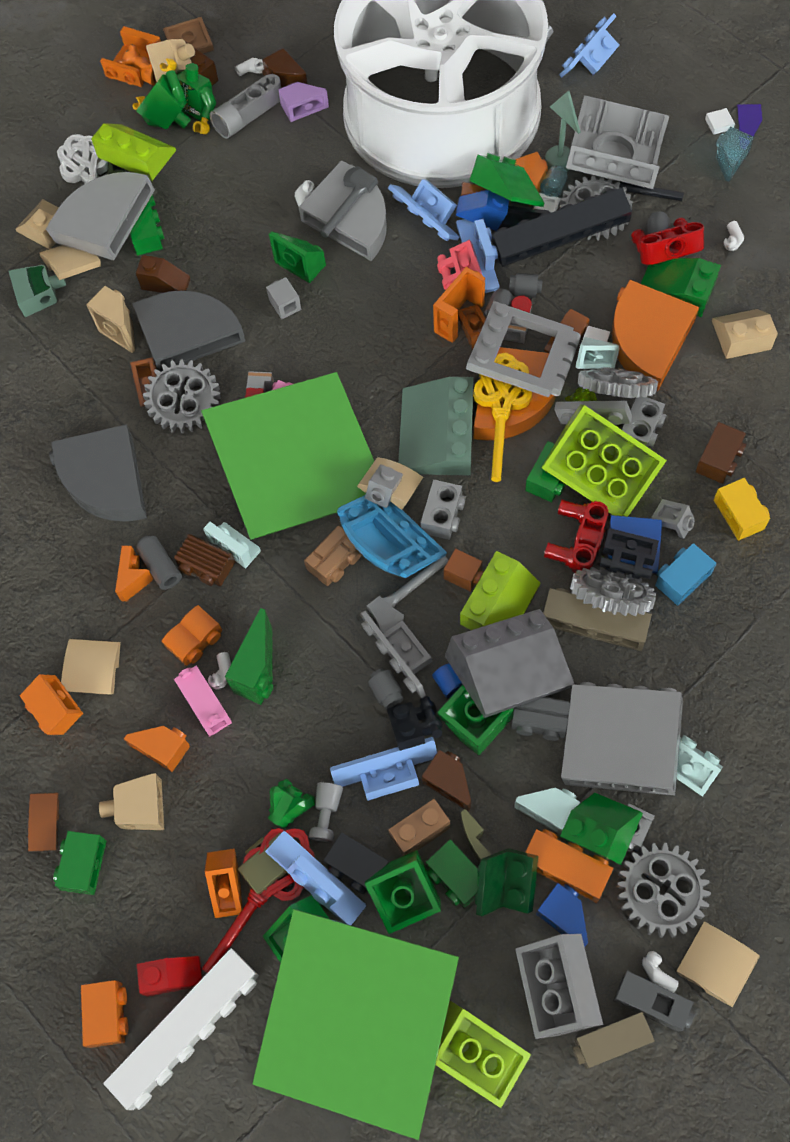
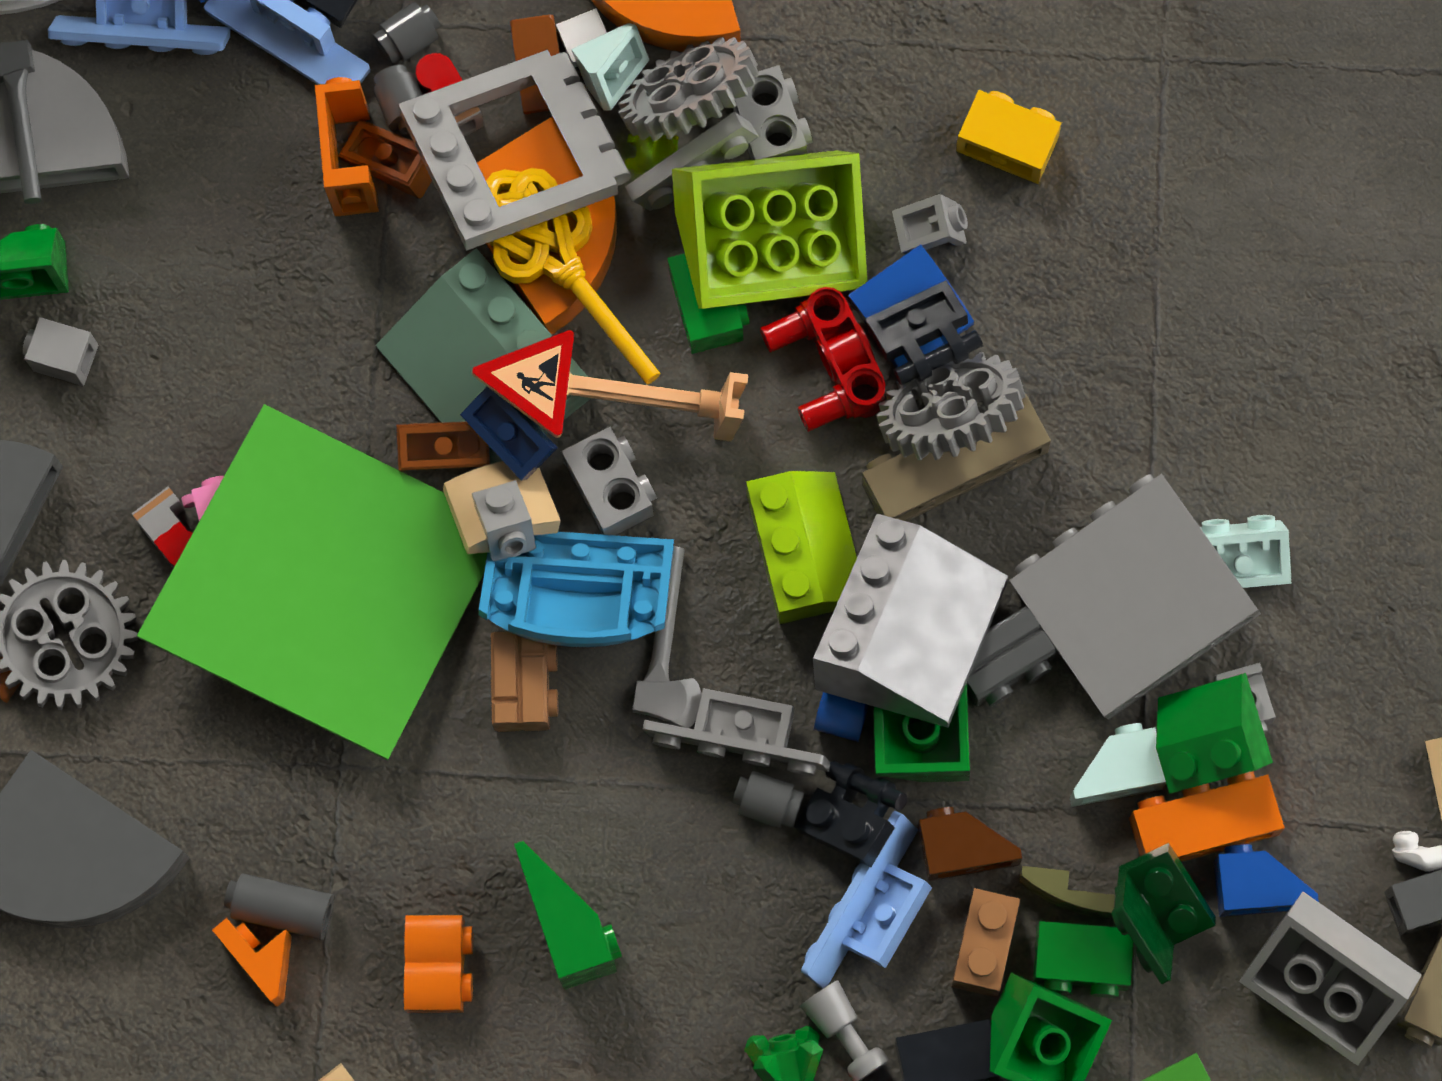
camera: 45 degrees left, 10 degrees up
(202, 700) = (537, 1036): bright pink brick -> none
(204, 560) = (345, 846): reddish brown brick -> none
(218, 679) = (528, 976): white arm -> none
(232, 541) = (361, 786): light aqua bracket -> none
(390, 442) = (440, 446): none -> dark orange slope
(419, 454) = (509, 433): none -> dark blue plate
(448, 442) = (540, 380): none -> light nougat piece
(461, 257) = (289, 71): coral plate -> none
(463, 570) = (720, 545): dark orange brick -> none
(649, 910) = (1337, 706): light grey gear -> none
(685, 573) = (1015, 295): dark azure brick -> none
(720, 453) = (912, 74): reddish brown brick -> none

